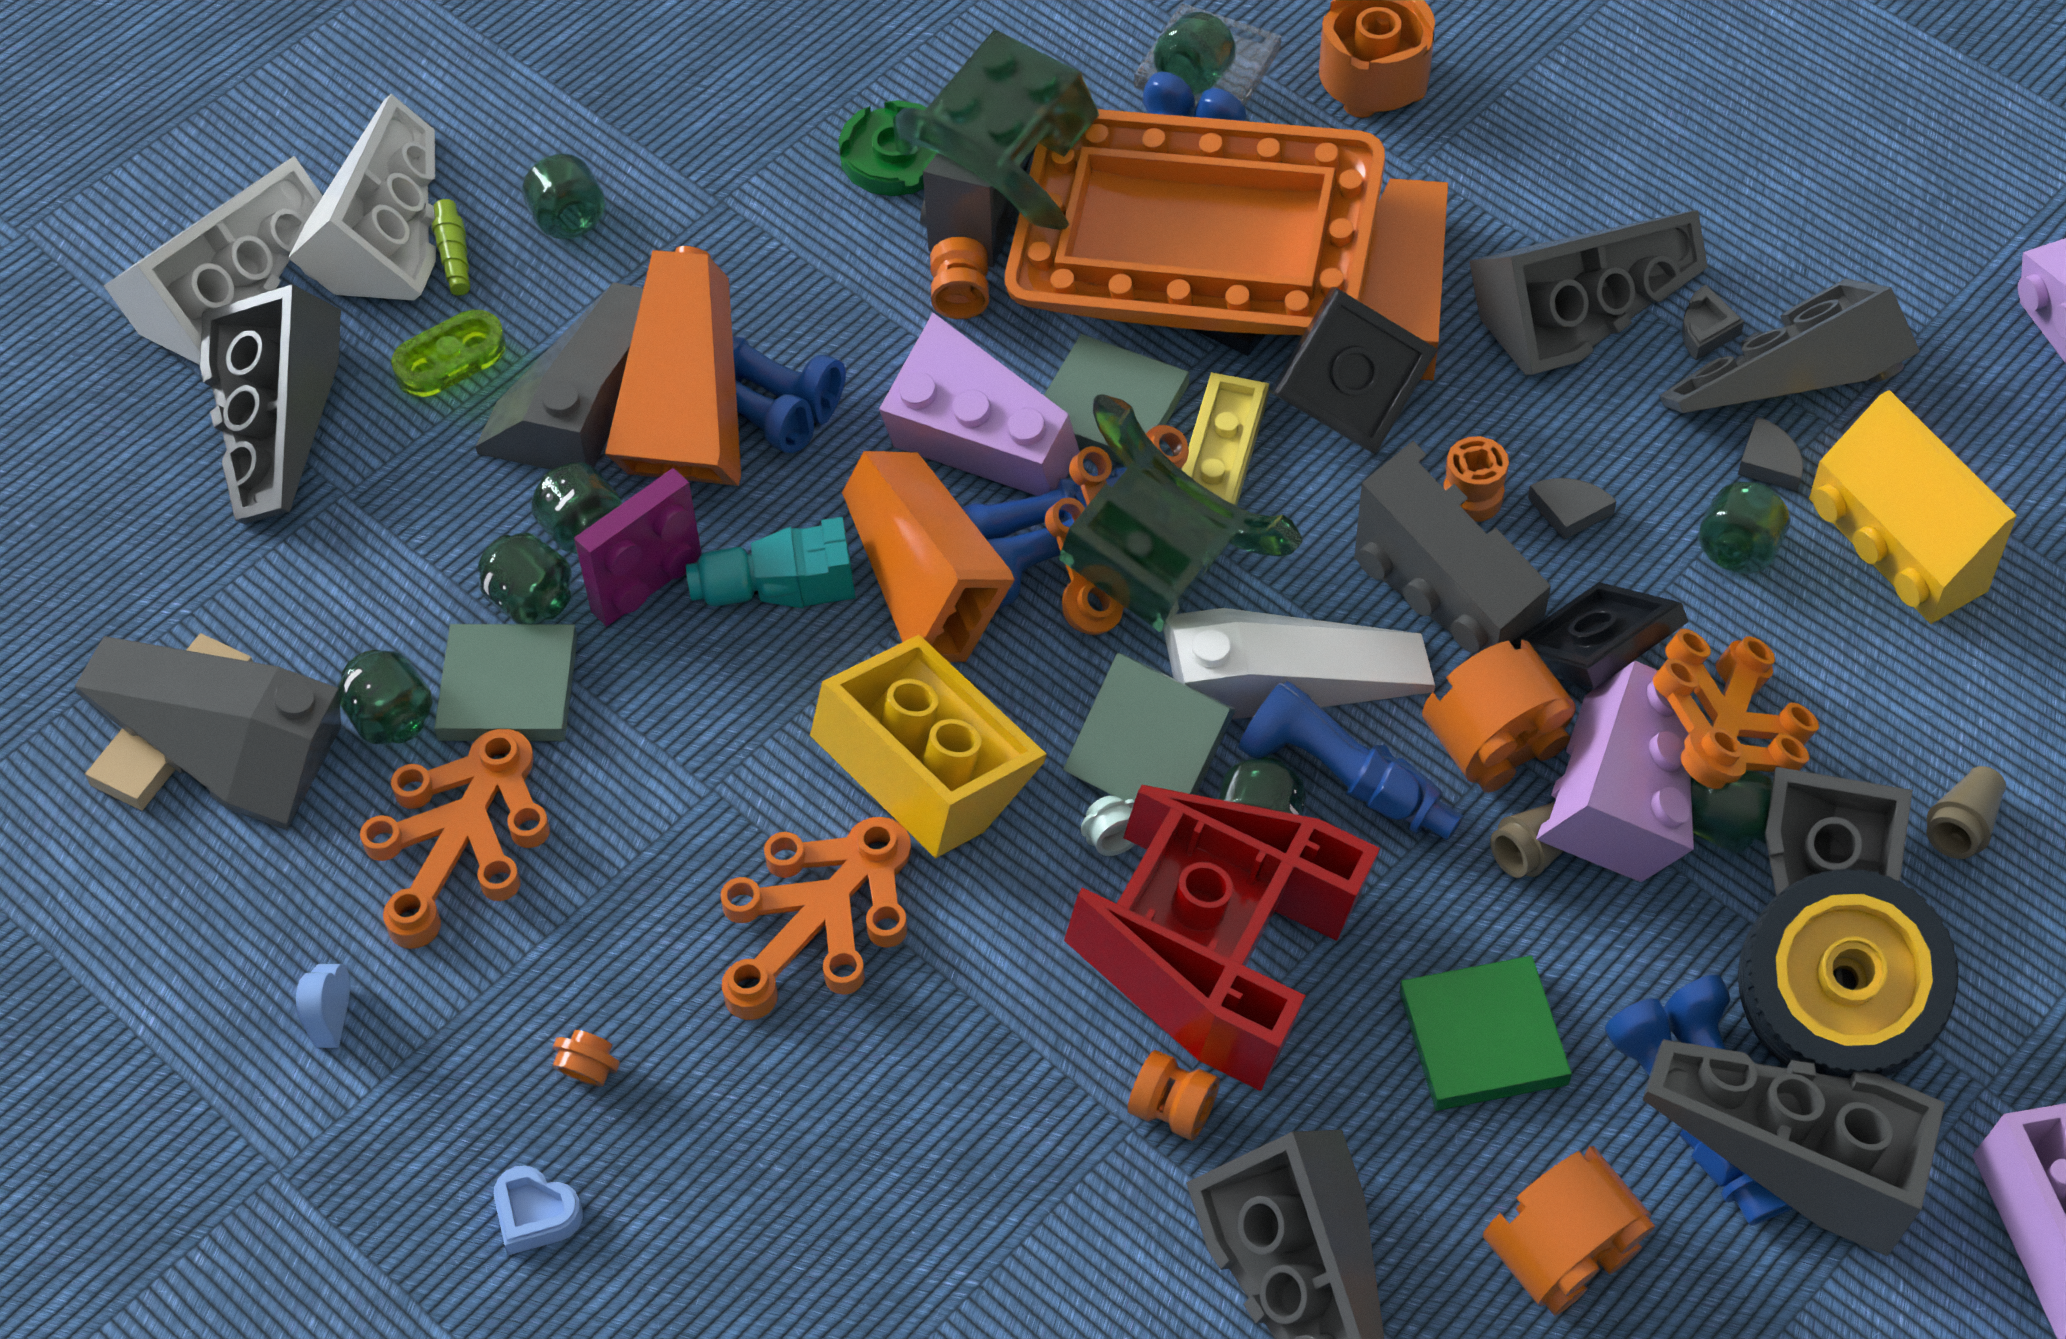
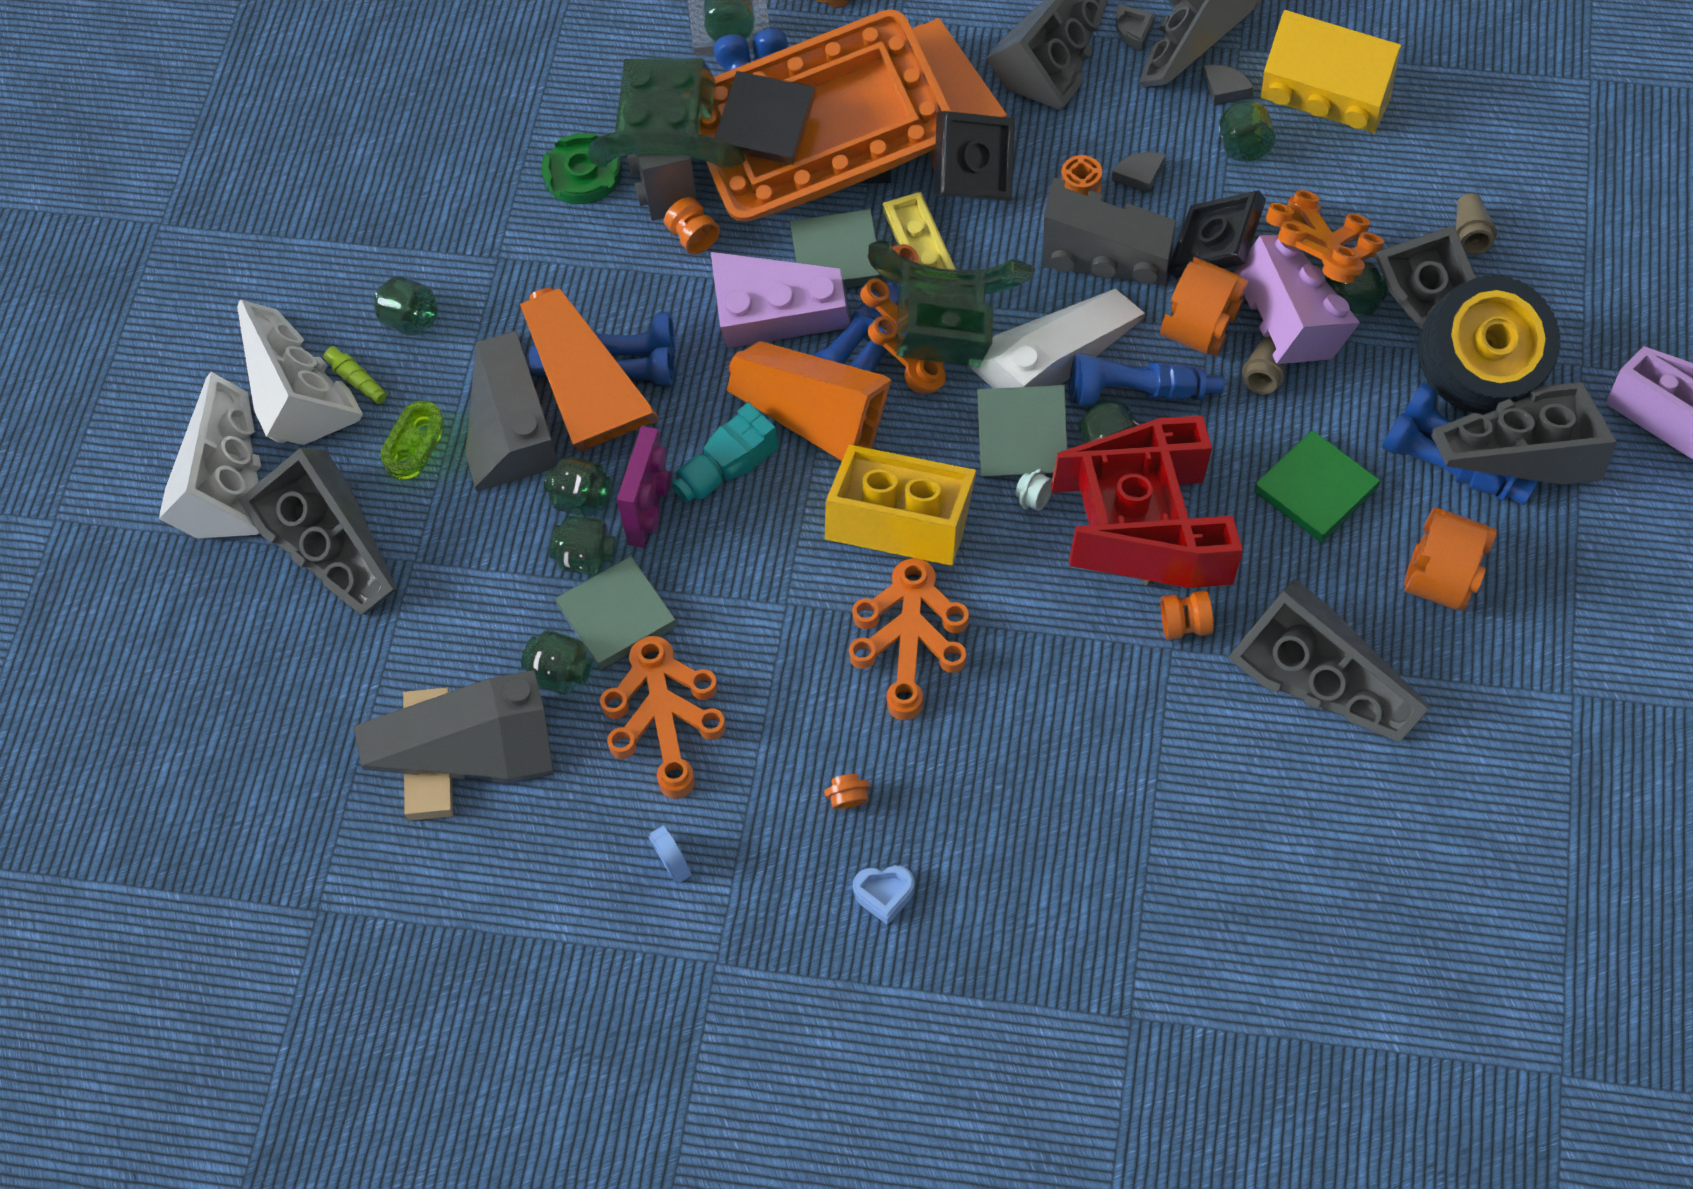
camera: 30 degrees left, 5 degrees up
(1124, 187) = (766, 116): none -> black tile

